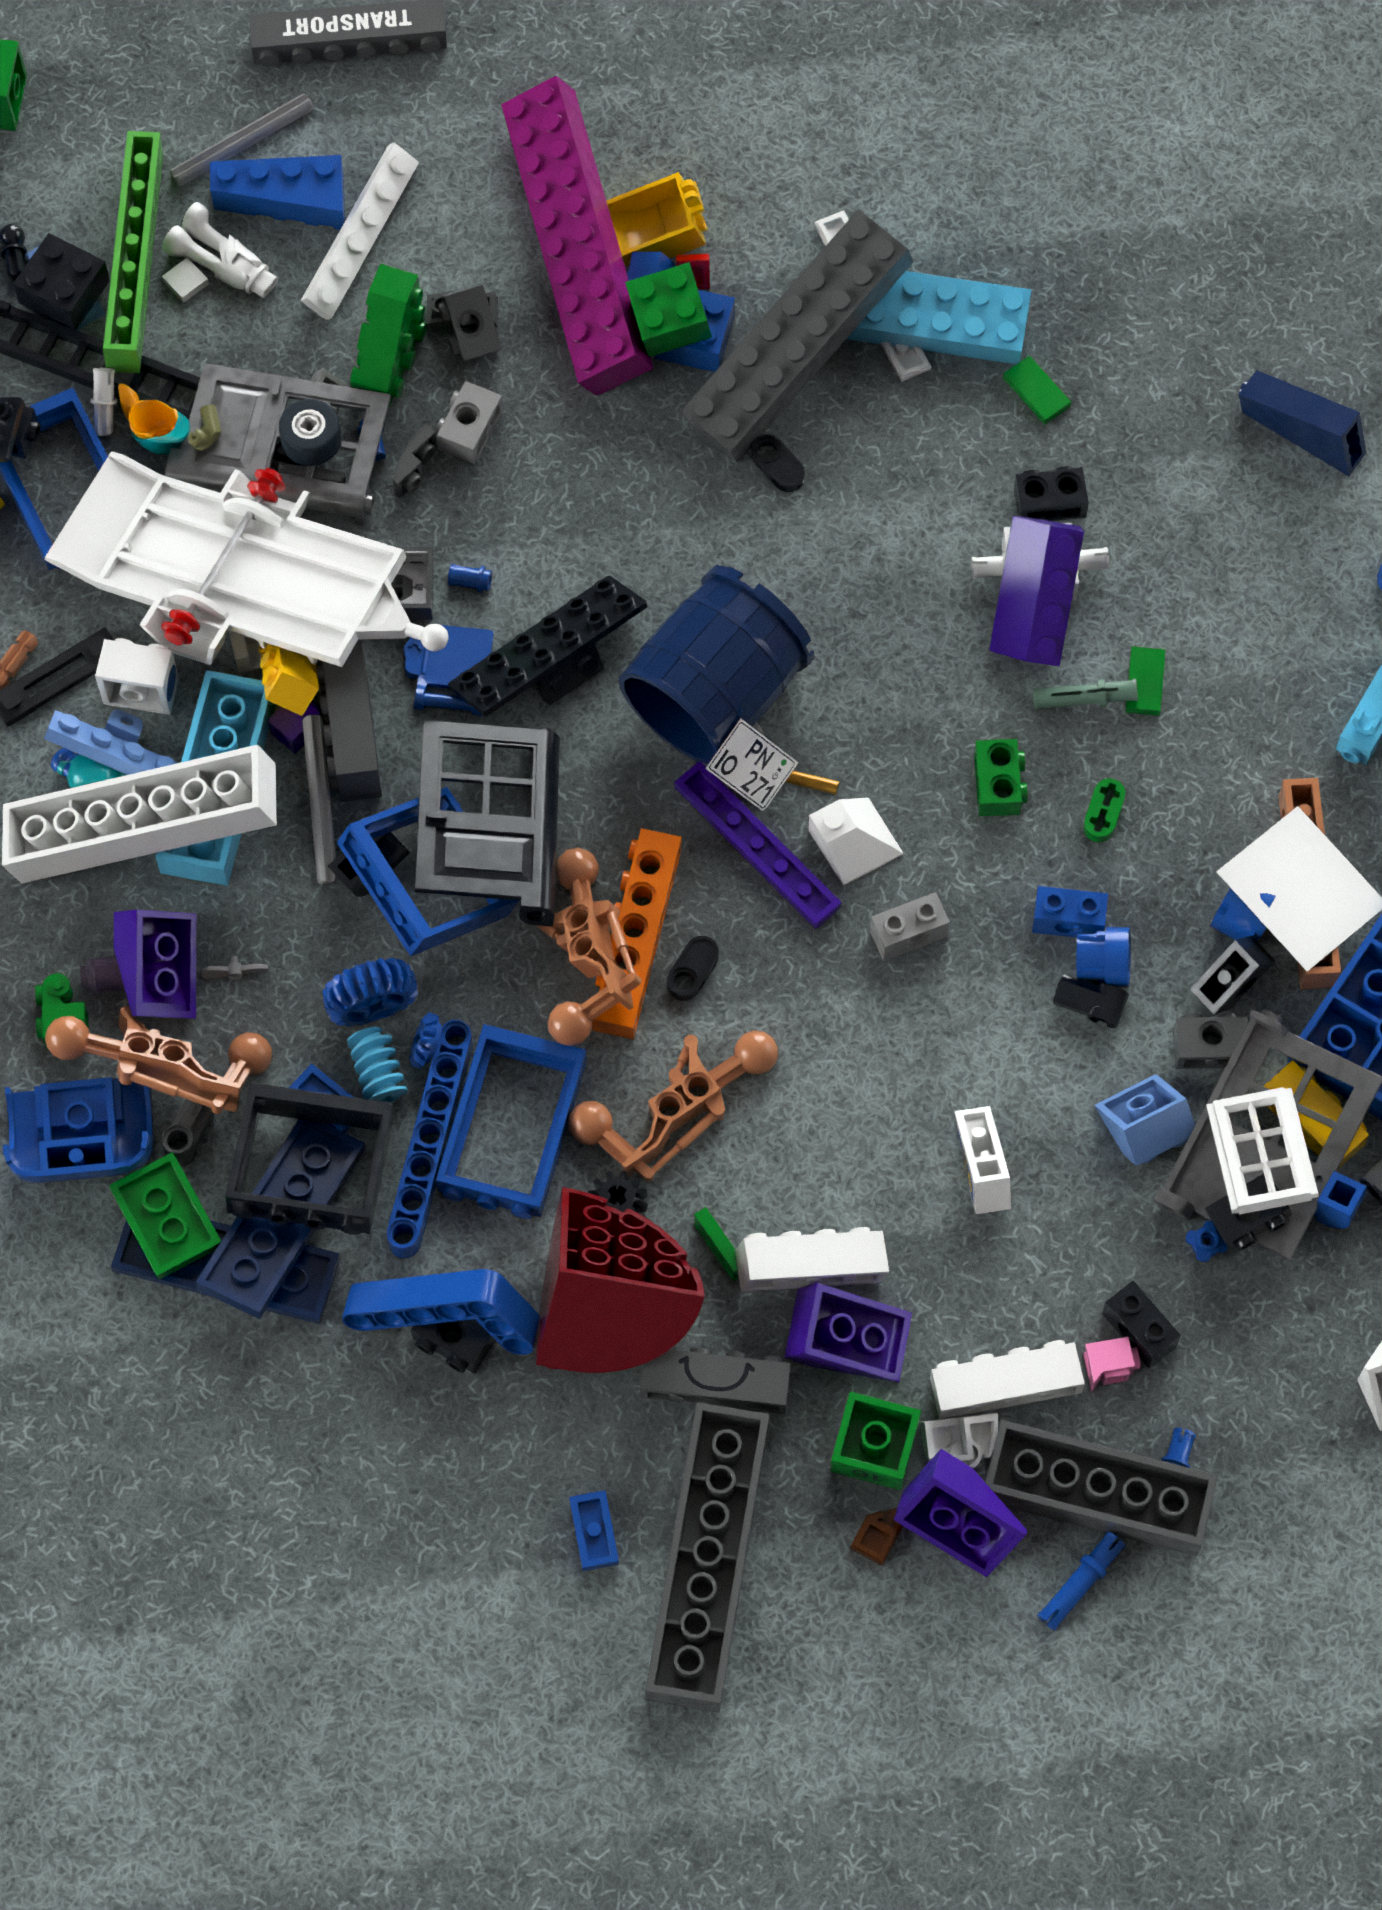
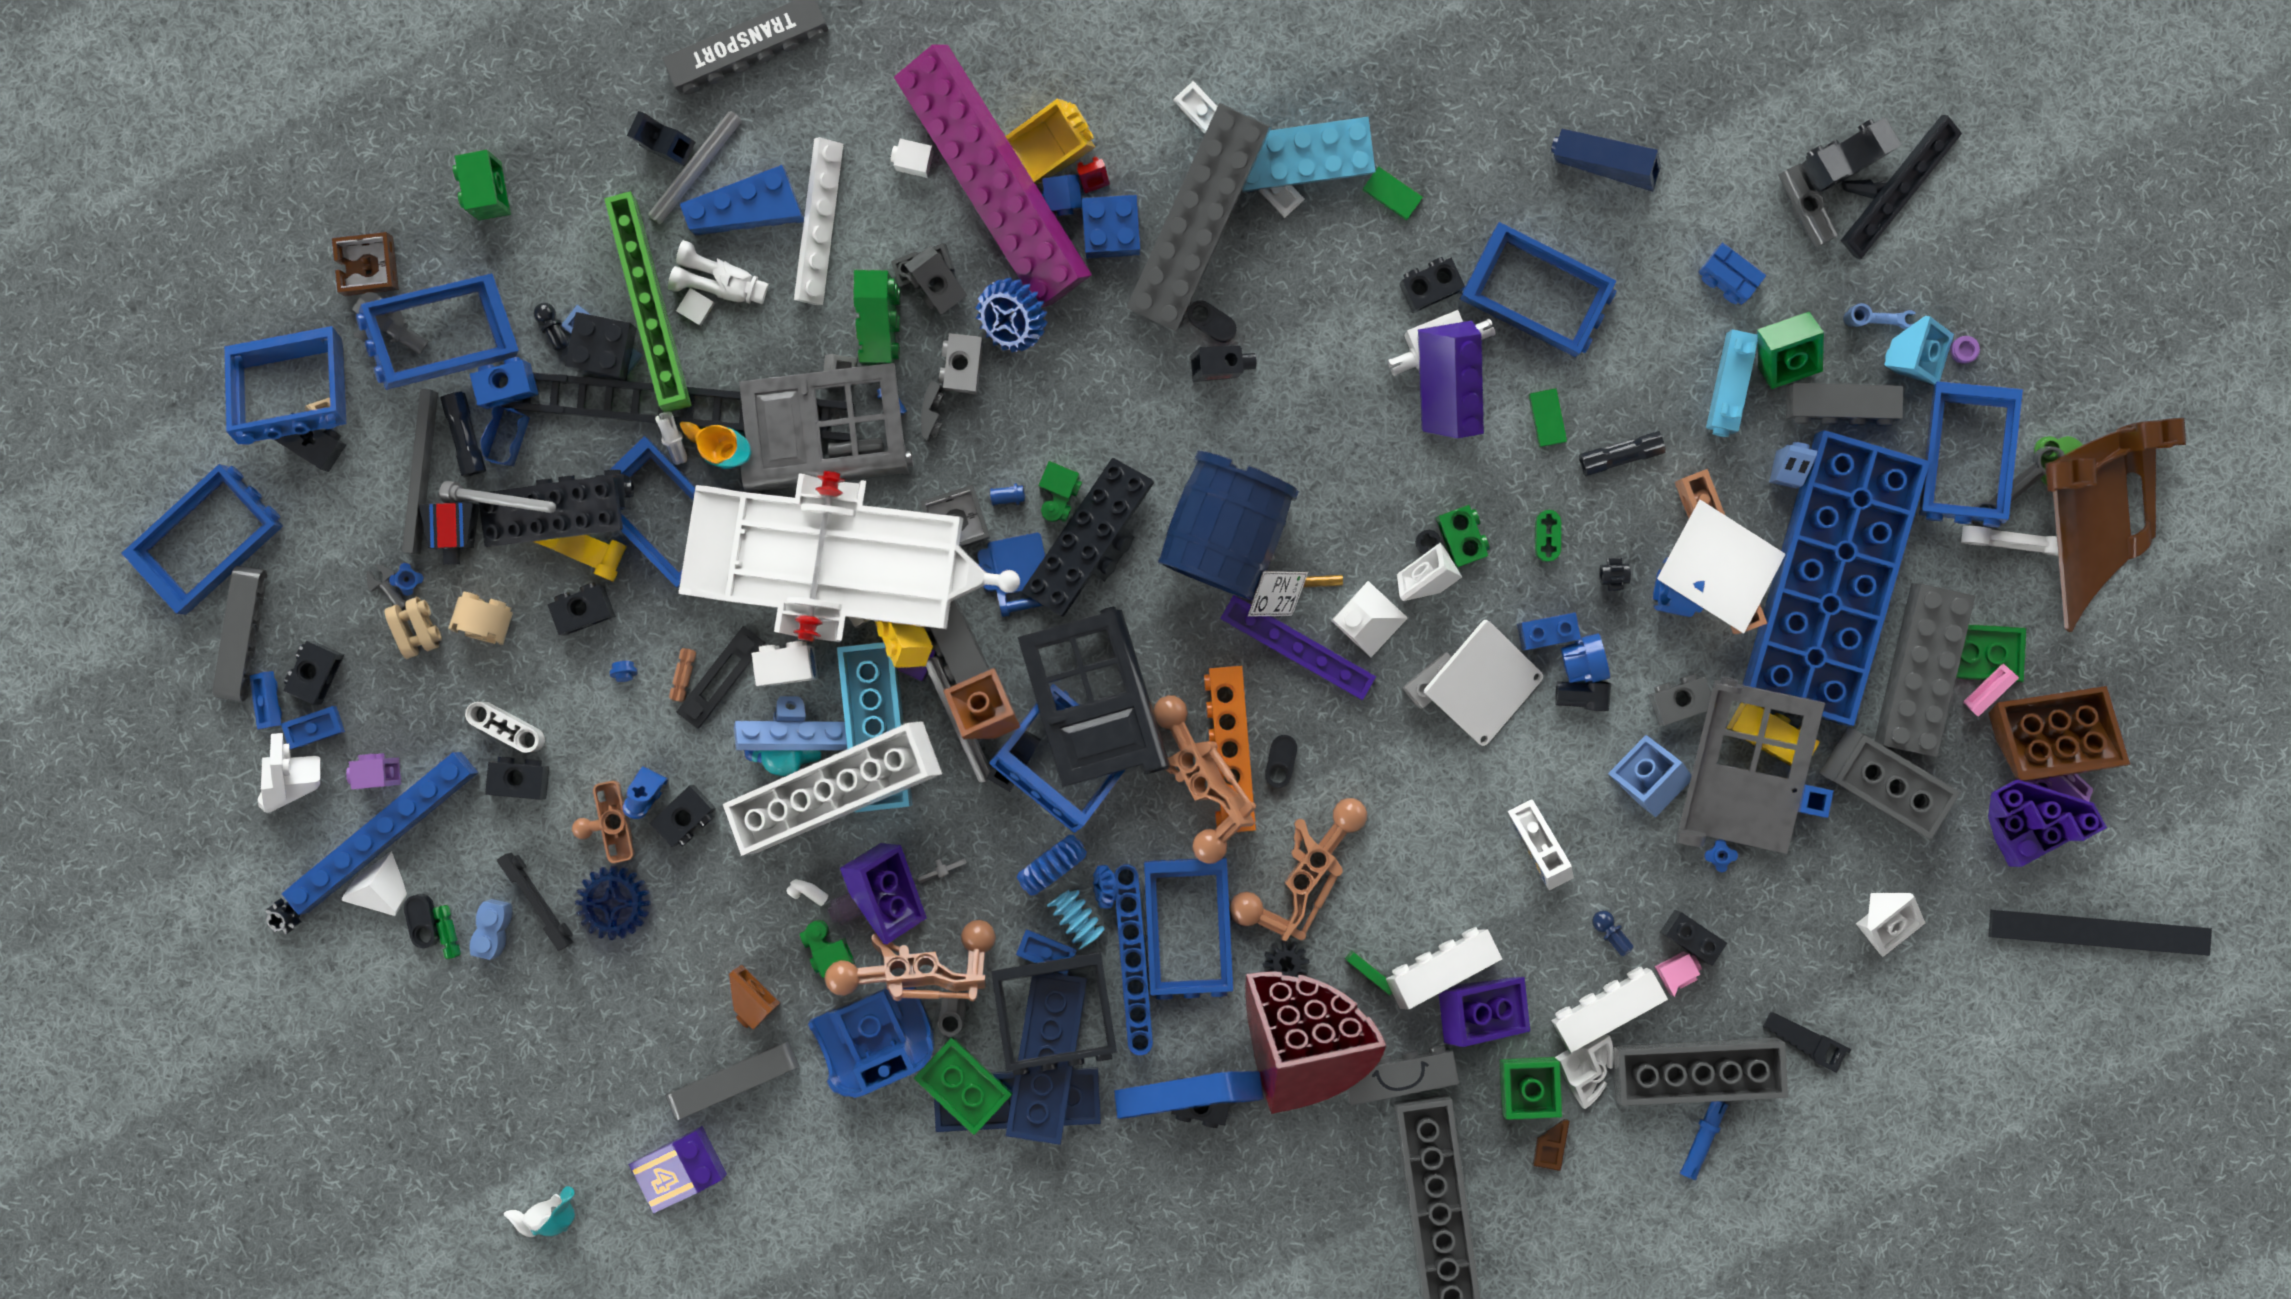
camera: 20 degrees left, 20 degrees up
(64, 939) = (808, 889): none -> white arm
(209, 431) = (765, 443): olive arm -> none
(212, 98) = (661, 139): none -> black brick
(310, 432) = (848, 430): black wheel -> none
(352, 771) = (982, 707): none -> dark orange slope
(492, 196) = (912, 157): none -> white brick
(534, 377) = (996, 307): none -> blue gear
(537, 582) = (1062, 485): none -> green brick
(594, 1530) = (1349, 1213): blue plate -> none
(668, 309) = (1091, 228): green brick -> none
(771, 503) = (1210, 363): none -> black torso
(946, 804) = (1428, 575): none -> white slope
(947, 780) = (1431, 534): none -> black bush
(959, 1514) = (1606, 1125): dark purple slope -> none
(970, 944) = (1484, 683): none -> white piece
(1040, 1291) = (1604, 922): none -> dark blue axle
(1085, 694) = (1538, 436): sand green pin -> none
(1126, 486) = (1486, 263): none -> blue door
(1172, 873) = (1614, 574): none -> black gear
(1180, 1449) = (1745, 1025): blue pin -> none
(1232, 974) = (1686, 648): black brick -> none
(1238, 1232) = (1756, 817): black brick -> none
(1247, 744) = (1623, 453): none -> black axle
(1254, 1504) = (1807, 1040): none -> black piece
(1294, 1142) = (1774, 777): white piece -> none

